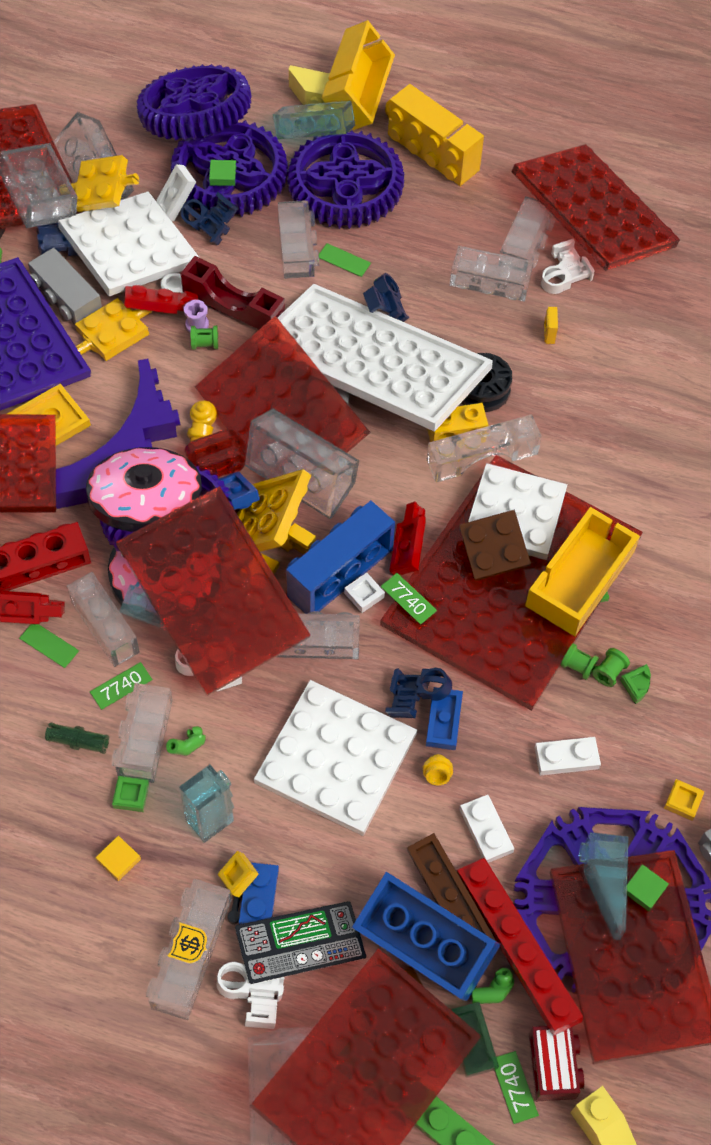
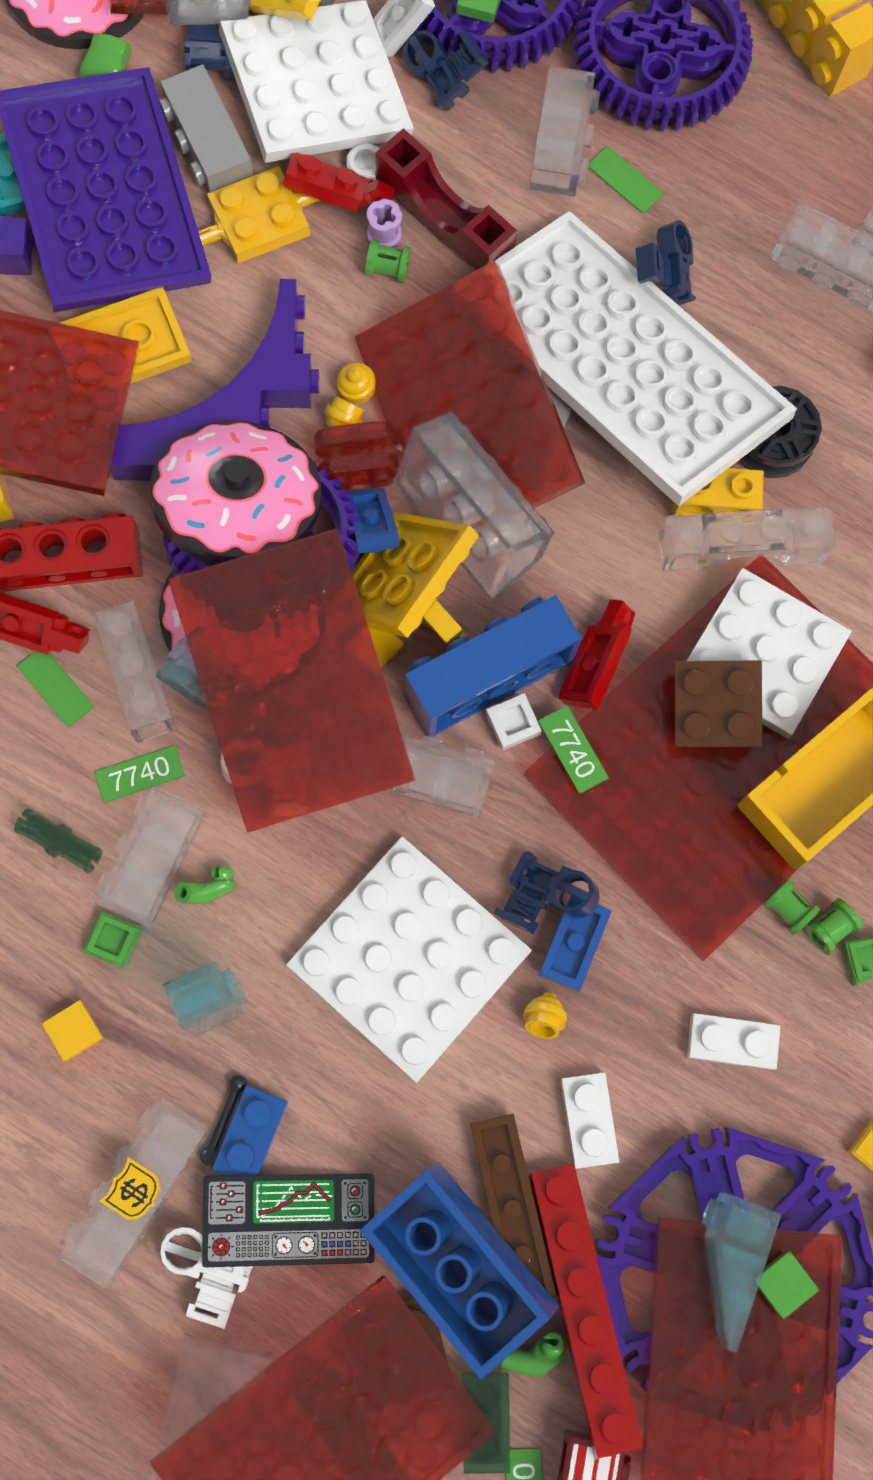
camera: 10 degrees right, 15 degrees up
(238, 874) = (227, 1101): yellow tile -> none

